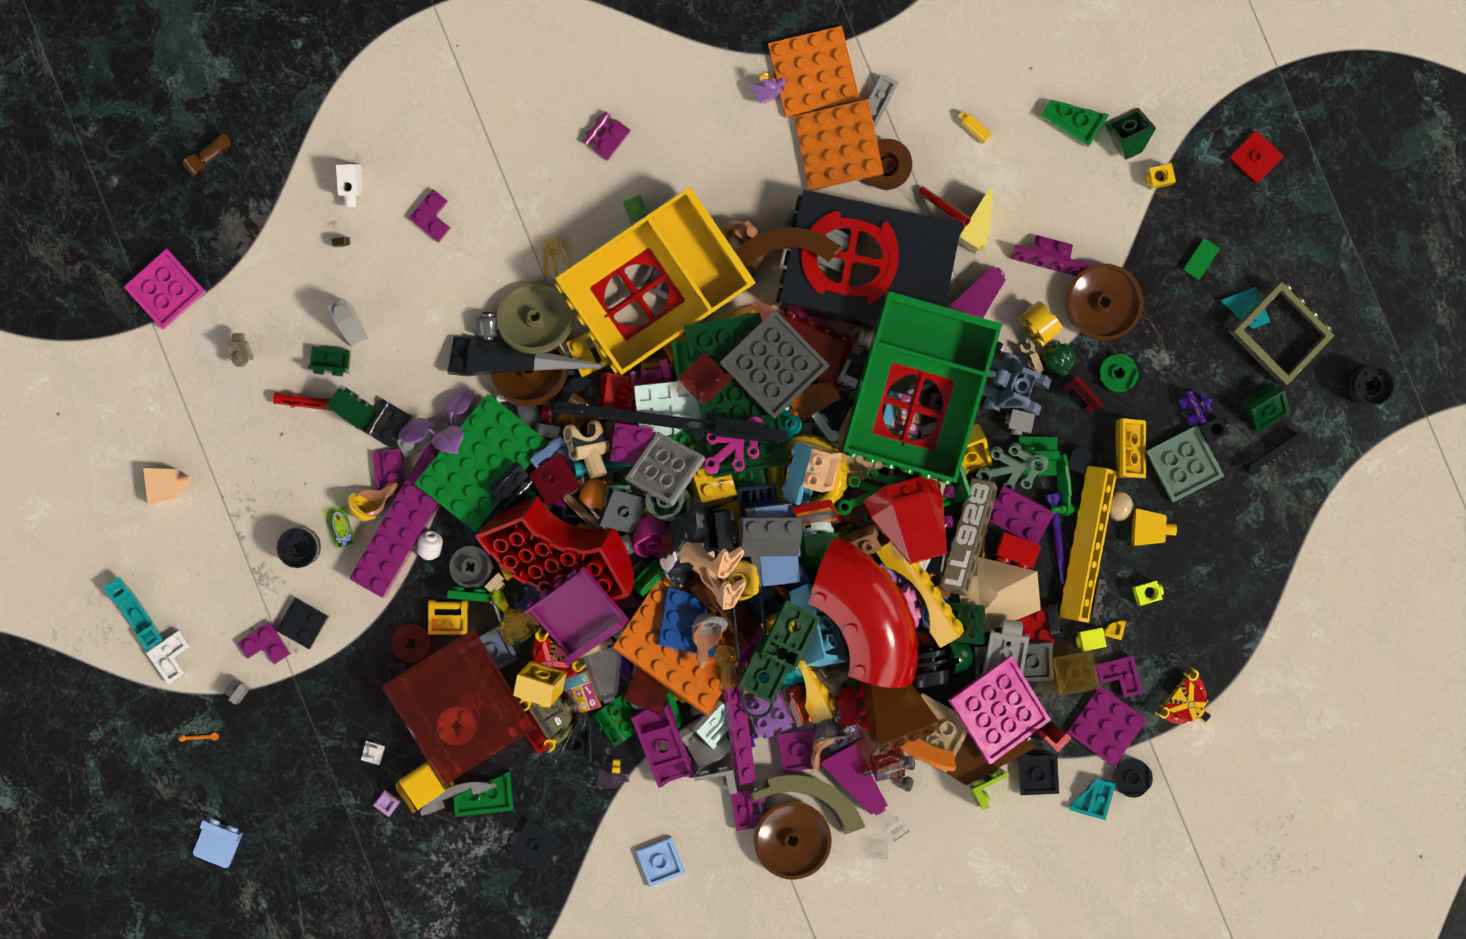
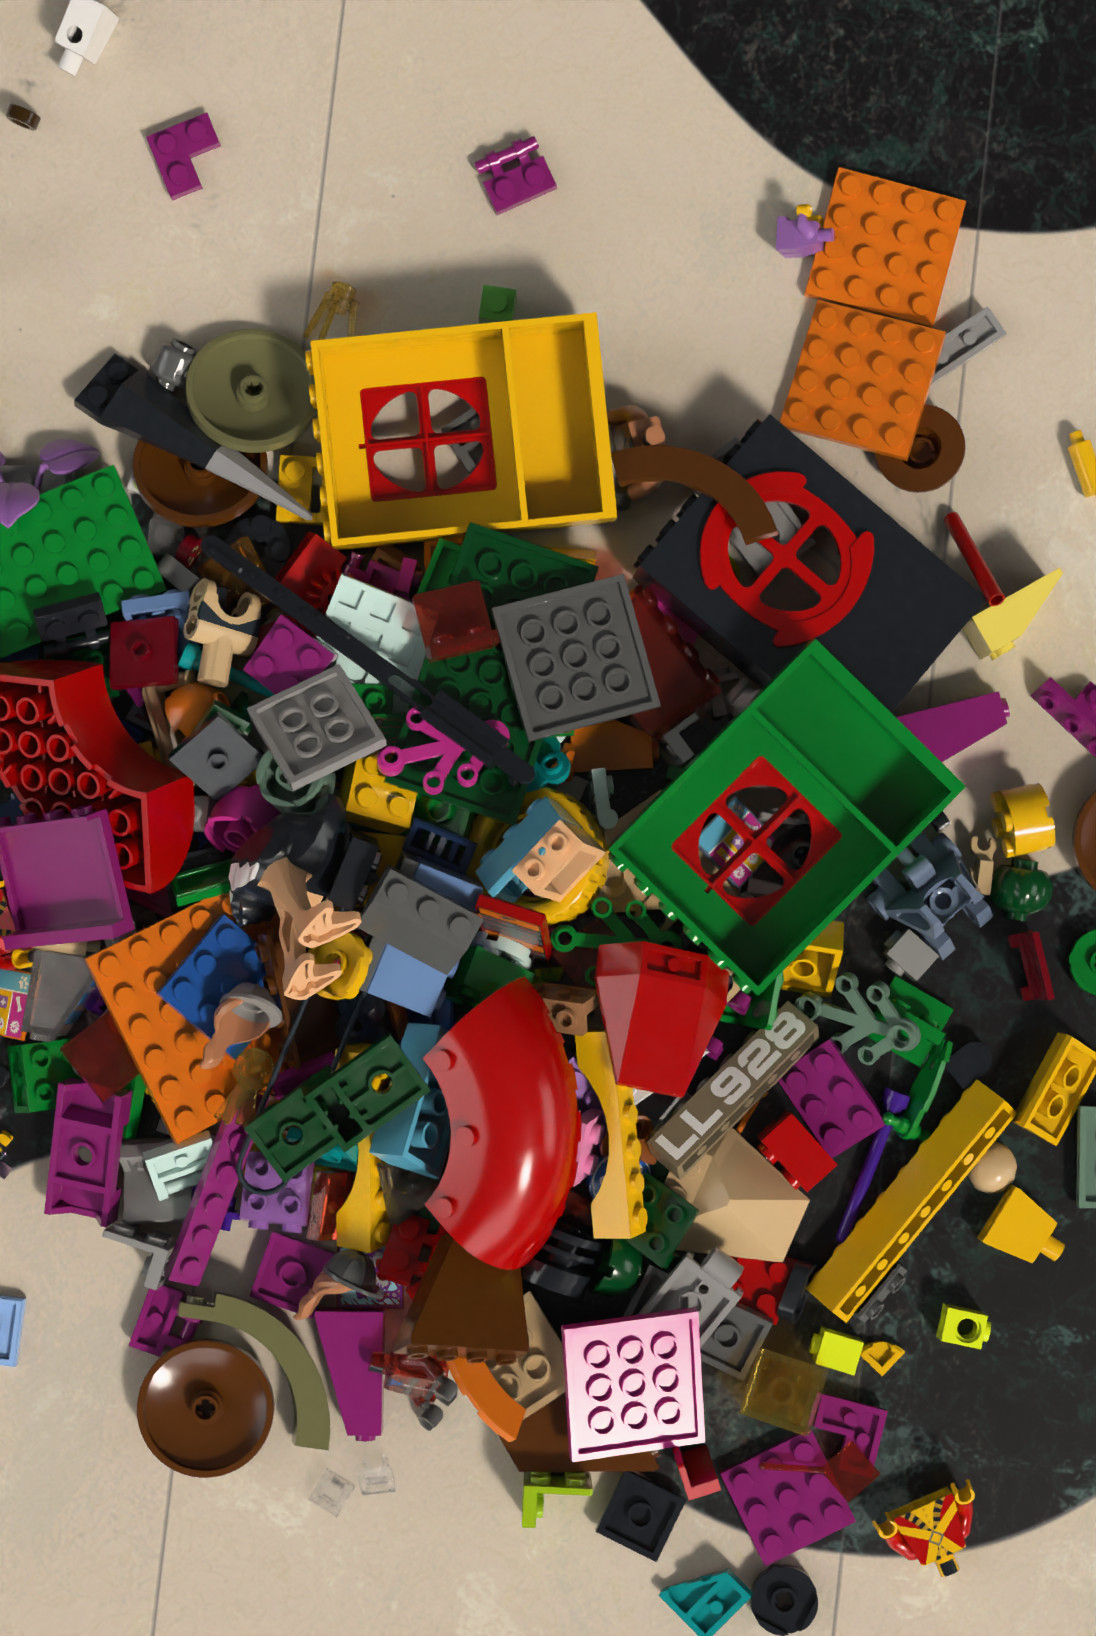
camera: 25 degrees right, 0 degrees up
(1129, 696) = (847, 1470): none -> clear red piece

